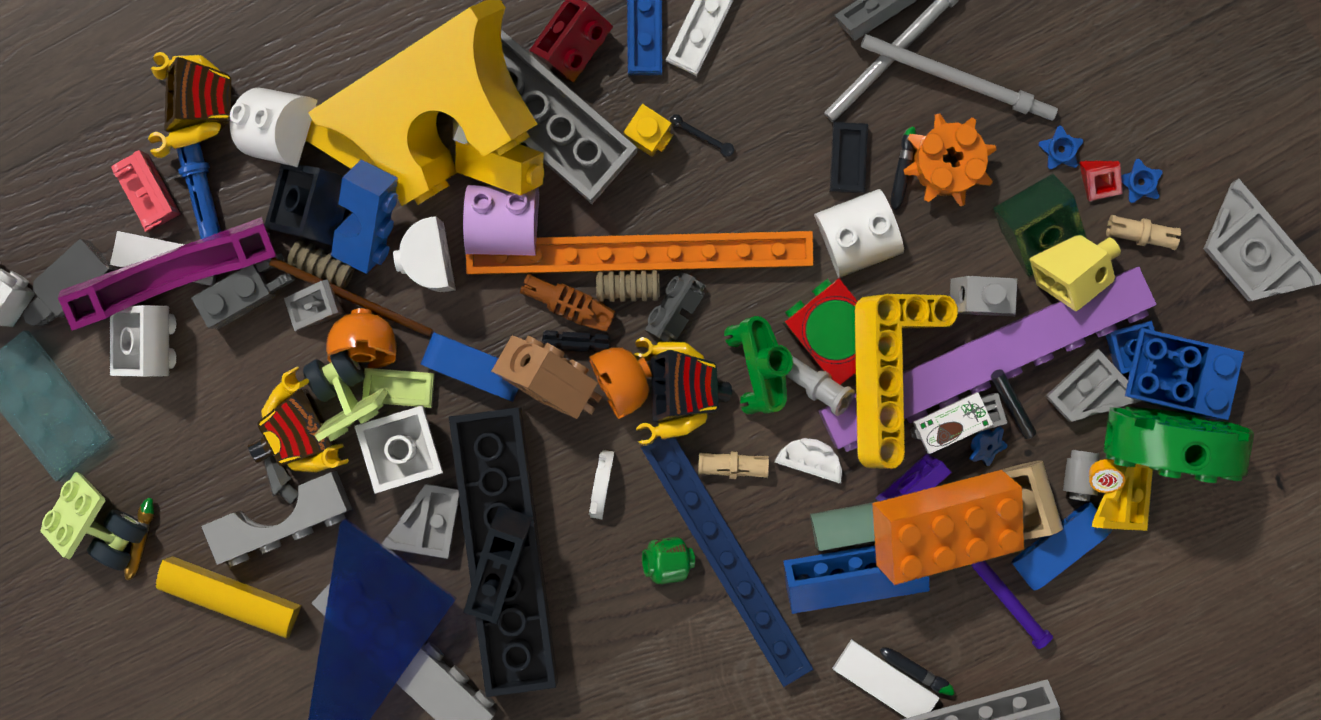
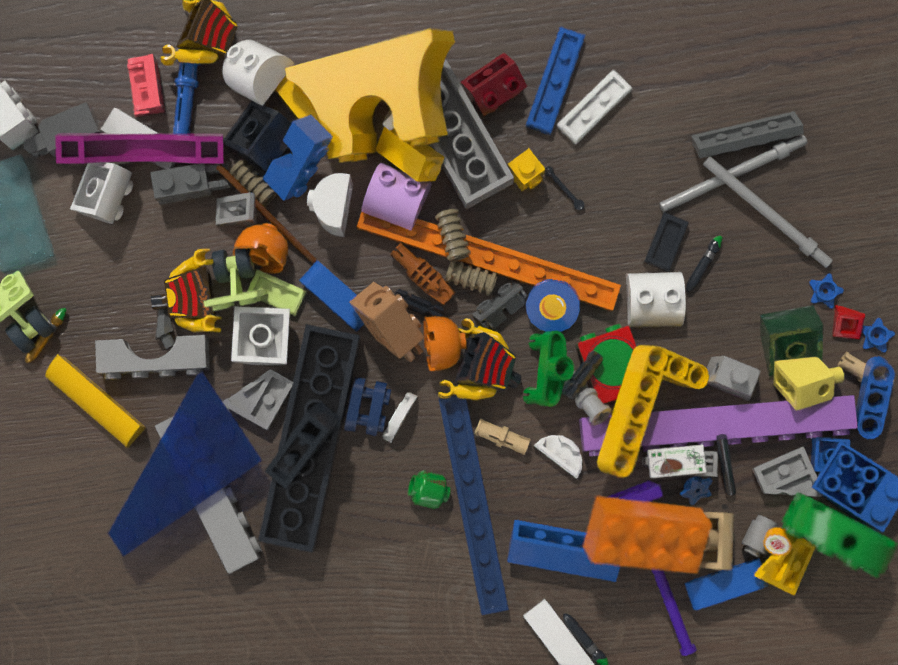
camera: 20 degrees right, 5 degrees down
(569, 470) = (374, 421): none -> dark blue brick
(587, 243) = (453, 234): none -> dark tan piece
(739, 285) = (553, 305): none -> blue tile
(804, 359) = (582, 375): none -> black axle
(843, 526) = (567, 511): sand green brick -> none
(941, 177) = (728, 278): orange brick -> none
(1156, 246) = (878, 409): none -> blue beam

